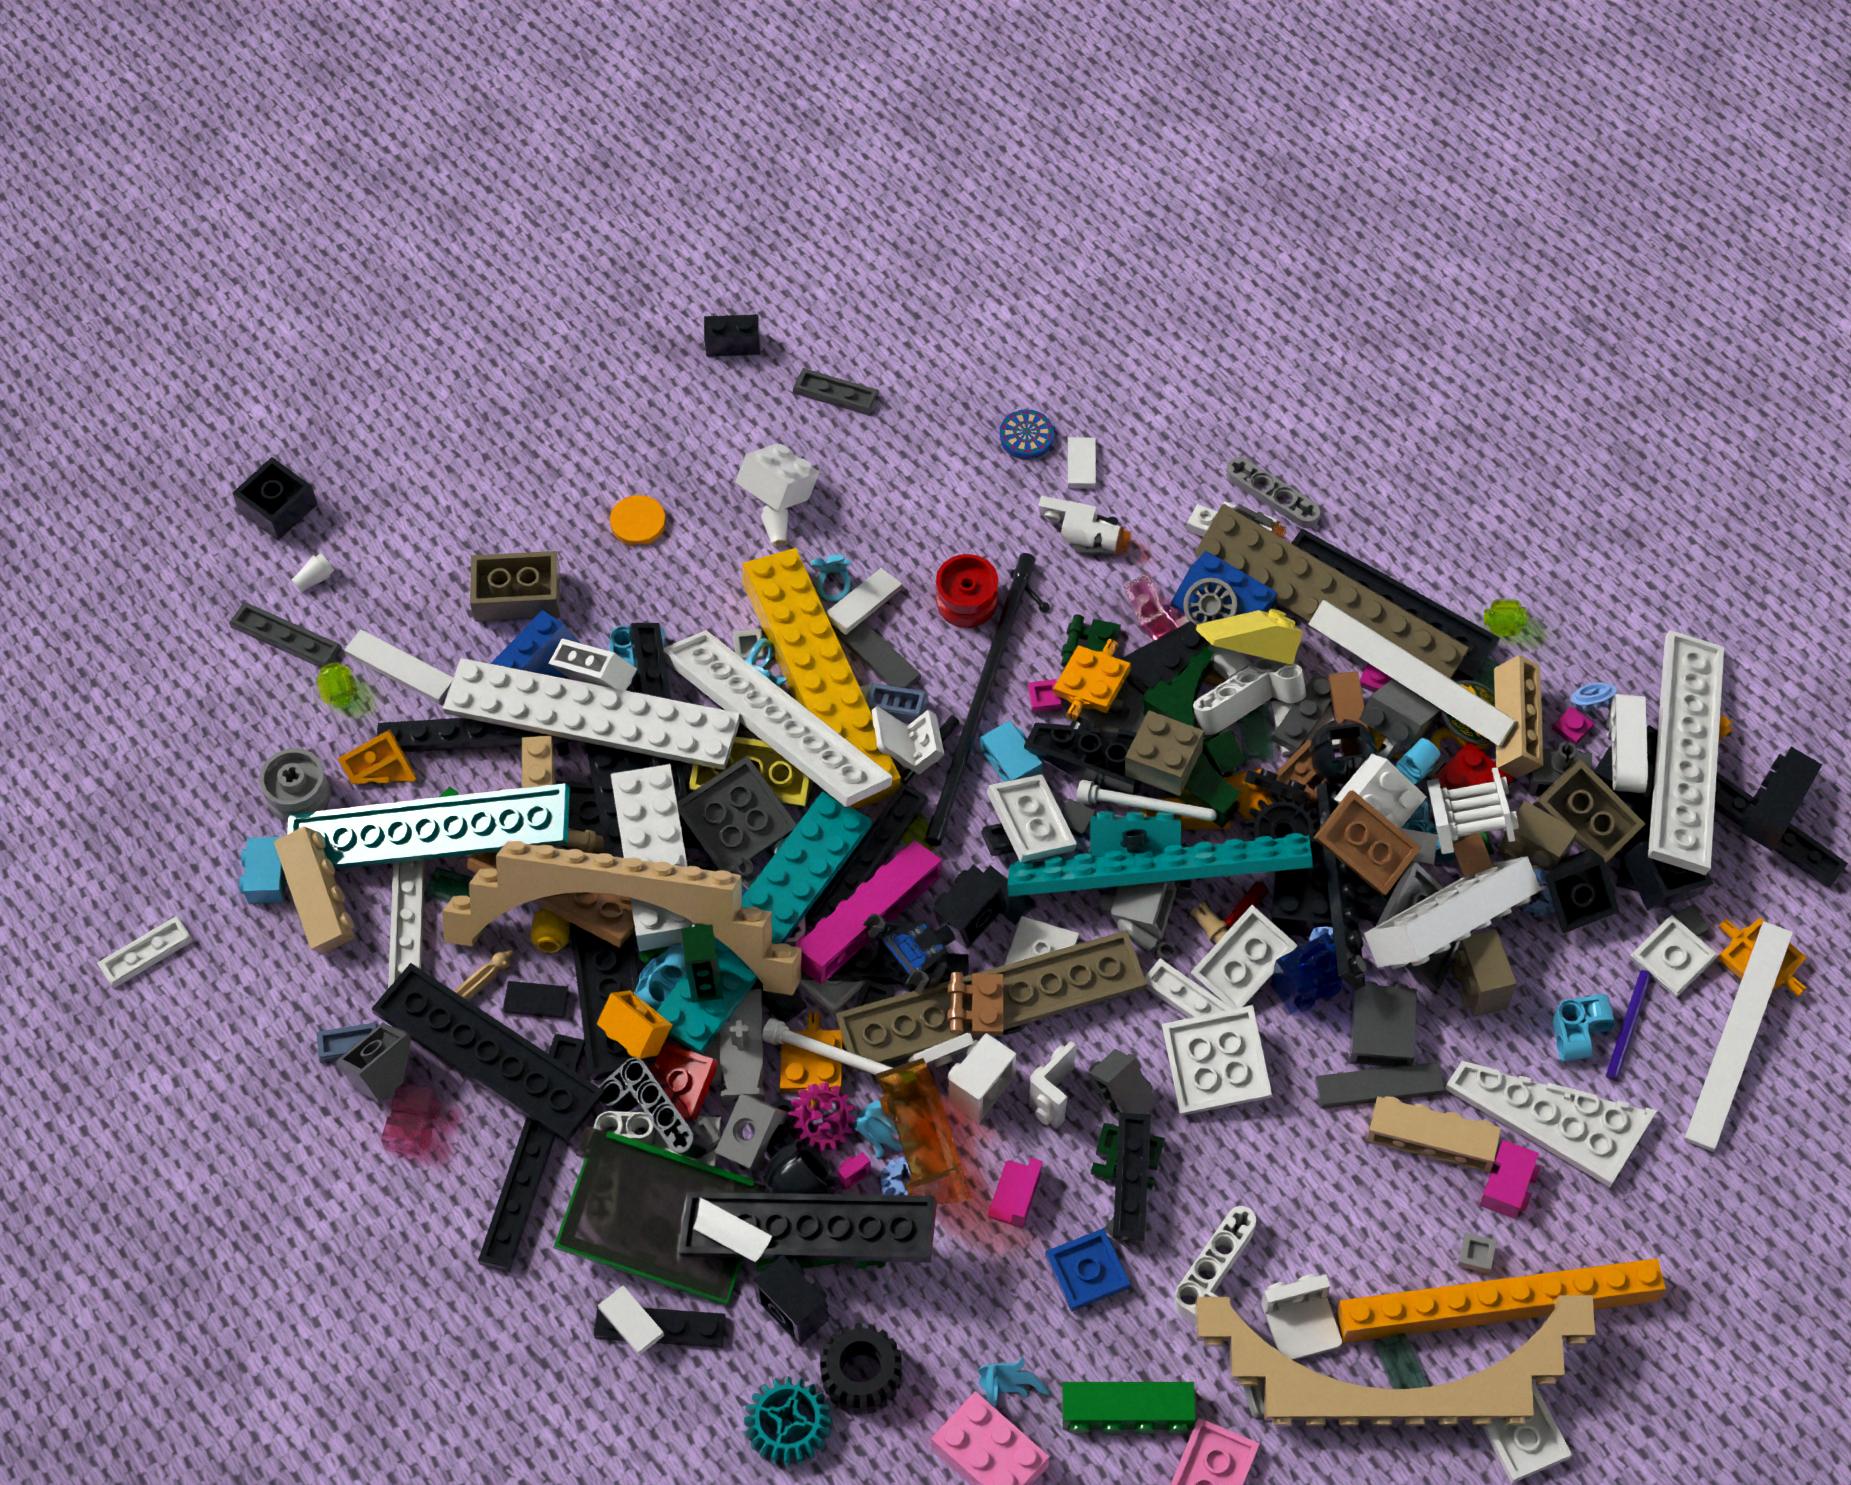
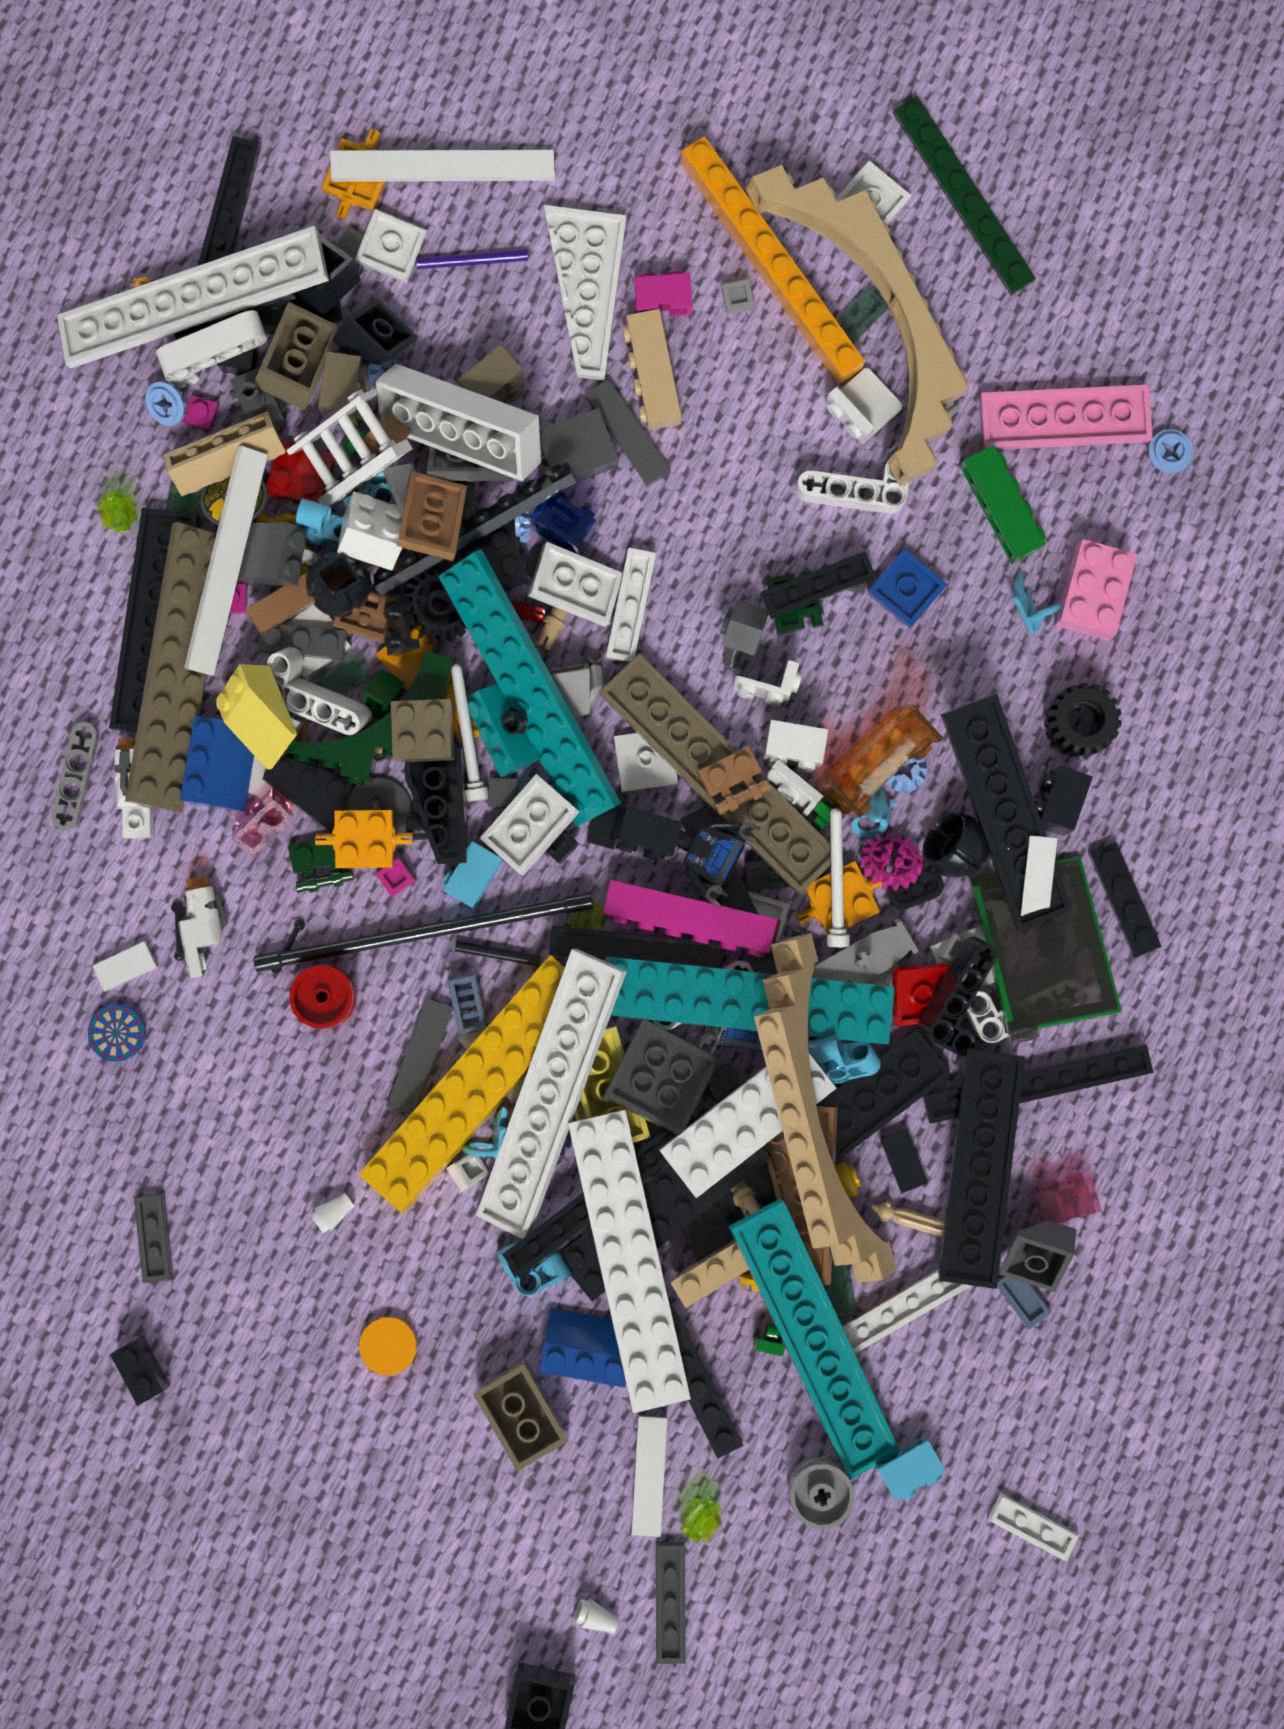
camera: 120 degrees left, 25 degrees up
(314, 889) = (912, 1409): tan brick -> none
(377, 761) = (757, 1434): light orange wing -> none
(592, 665) = (578, 1288): white brick -> none
(630, 1320) = (1140, 920): white tile -> none
(634, 1024) = (900, 1054): light orange brick -> none
(701, 962) = (838, 1014): dark green brick -> none
(764, 1119) = (942, 905): light grey piece -> none
(777, 476) = (287, 1234): white brick -> none
(801, 1426) = (1153, 768): teal gear -> none
(833, 564) = (357, 1132): medium azure piece -> none
(853, 1170) = (920, 813): dark pink plate -> none
(863, 601) = (377, 1087): white tile -> none
(911, 745) = (507, 967): white bracket -> none
(1015, 1192) = (869, 676): dark pink panel -> none
(1209, 603) = (235, 769): light grey wheel -> none
(1217, 1060) = (678, 566): white plate -> none
(1590, 1016) = (508, 294): medium azure piece -> none
(1780, 798) = (200, 205): black brick -> none

